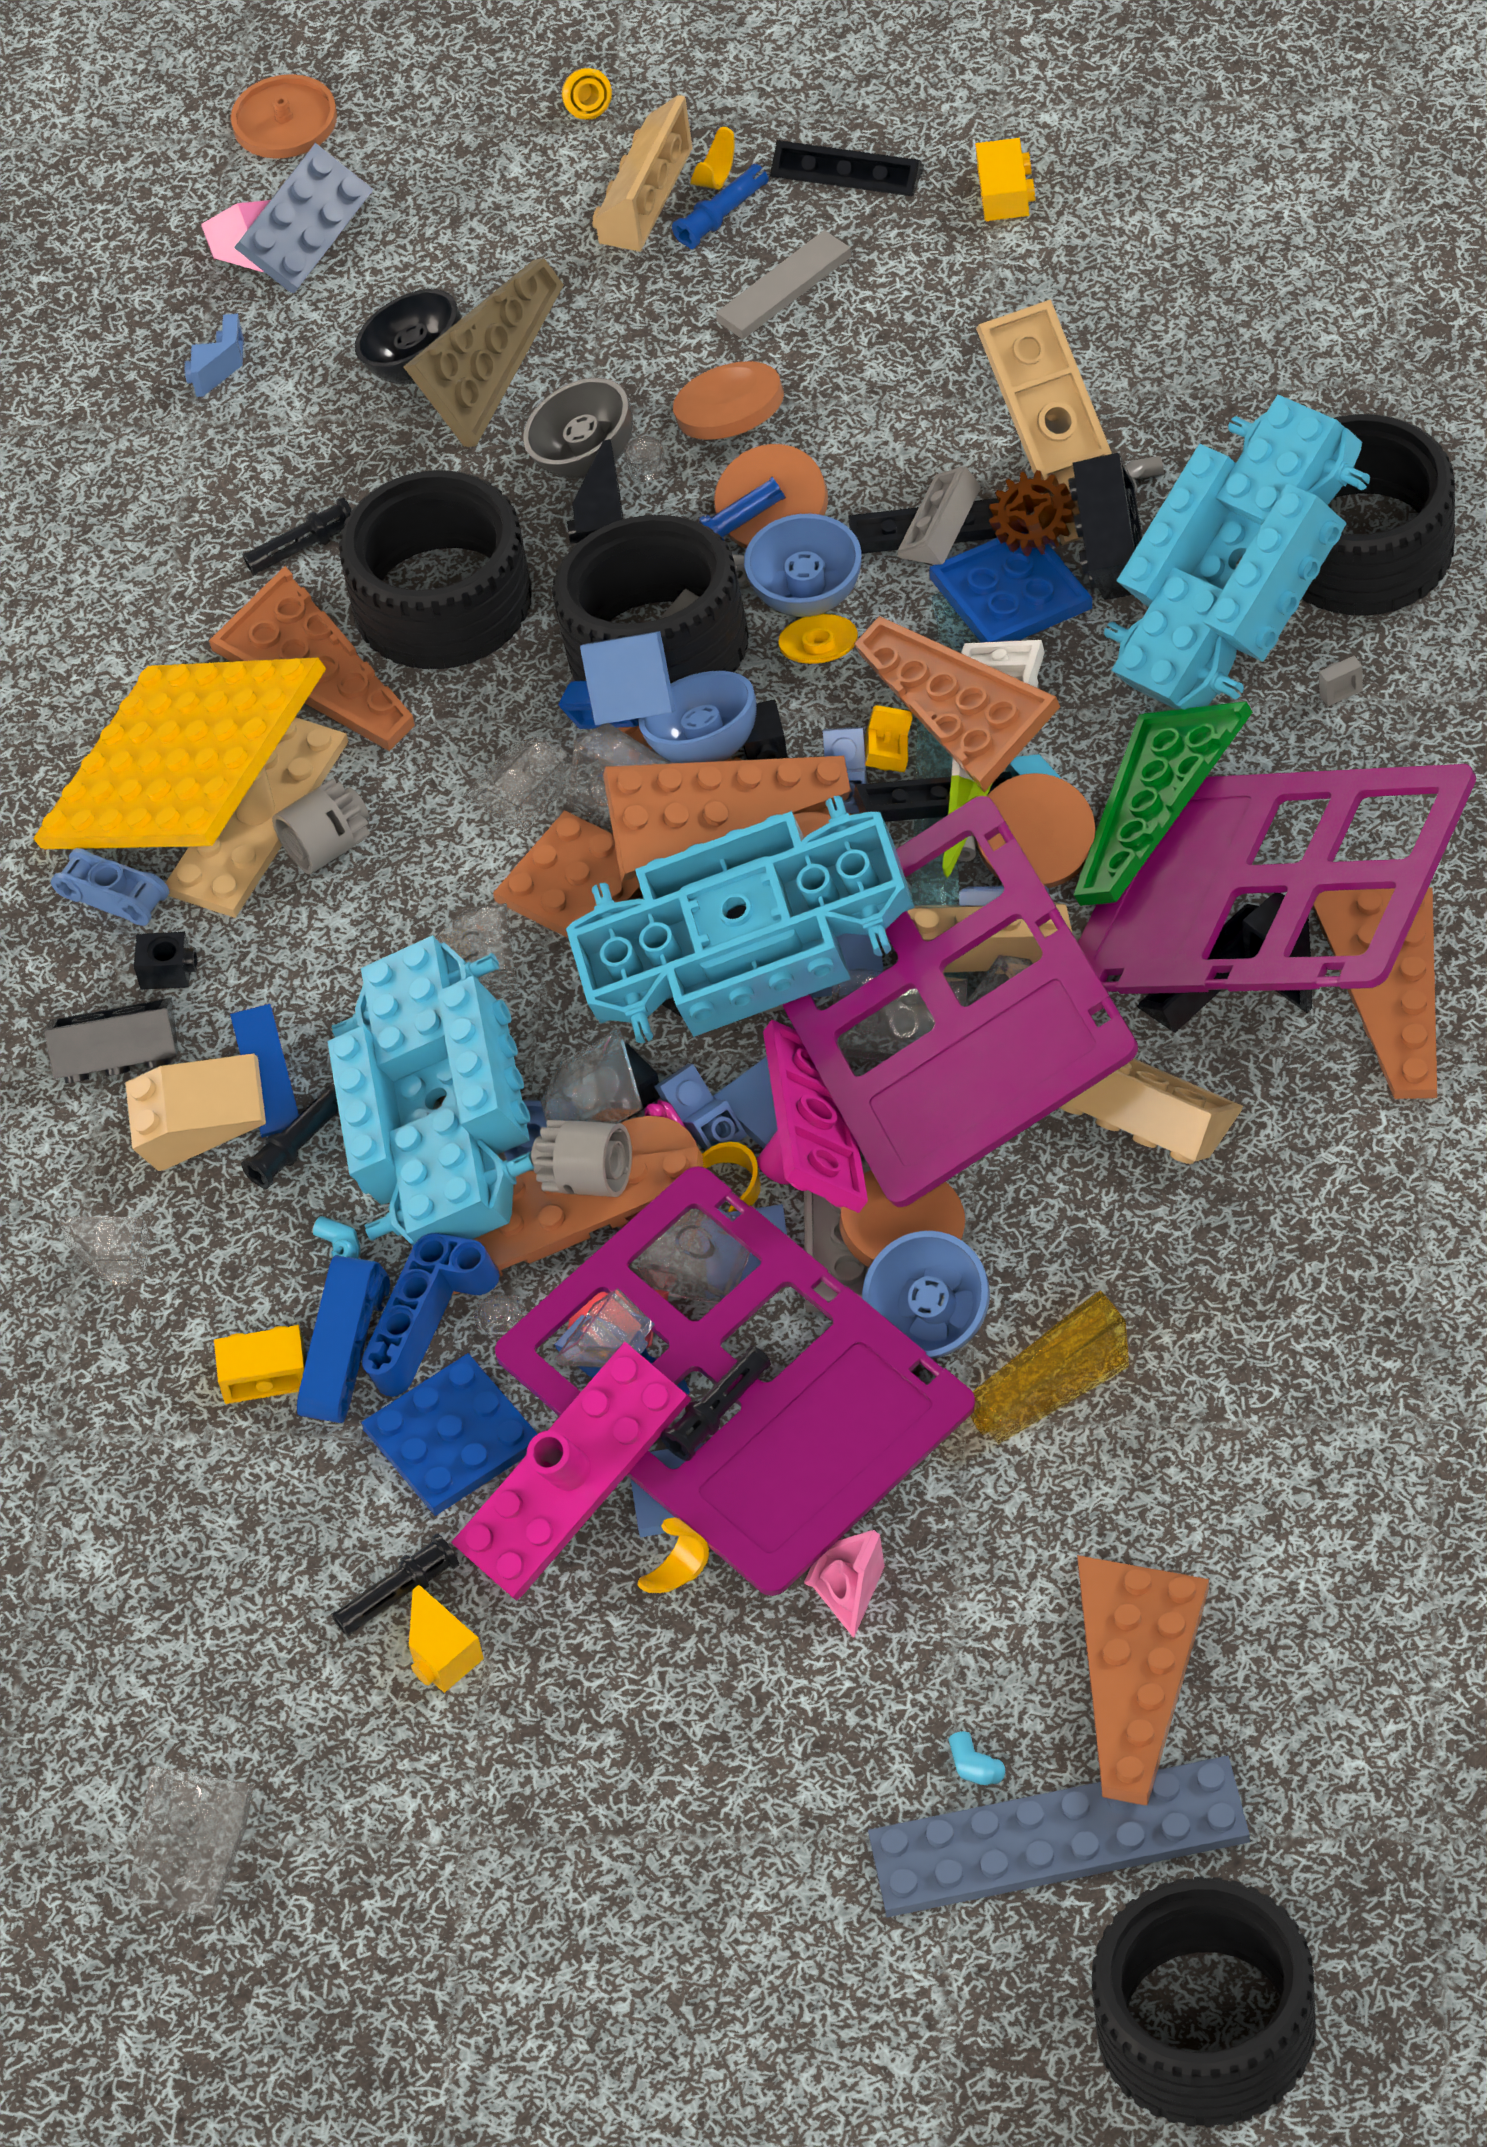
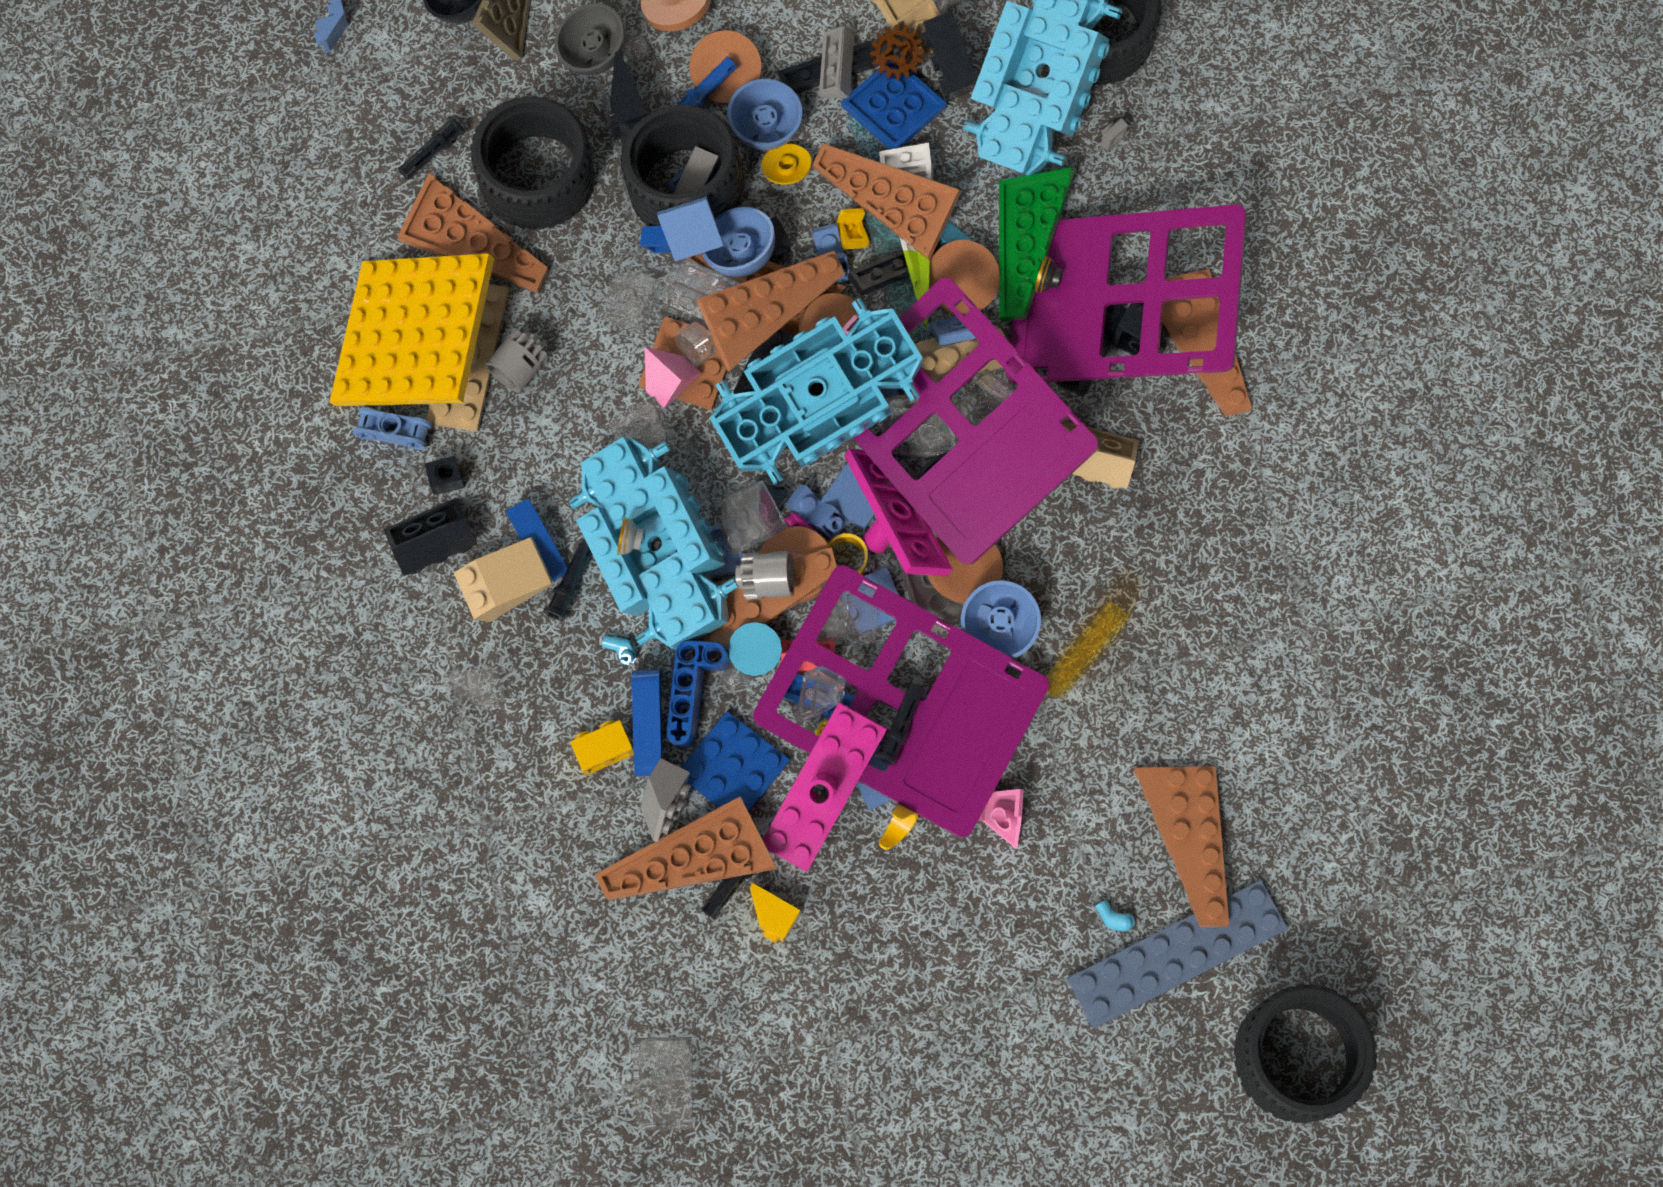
camera: 25 degrees left, 20 degrees up
(328, 1437) = (664, 797): none -> light grey slope
(363, 1527) = (703, 851): none -> nougat wing
(389, 1064) = (630, 537): none -> light grey piece
(533, 1266) = (754, 649): none -> medium azure tile
(536, 881) = (667, 375): none -> bright pink slope
(591, 845) = (695, 343): none -> clear slope
(1160, 841) = (1048, 276): none -> pearl dark grey piece

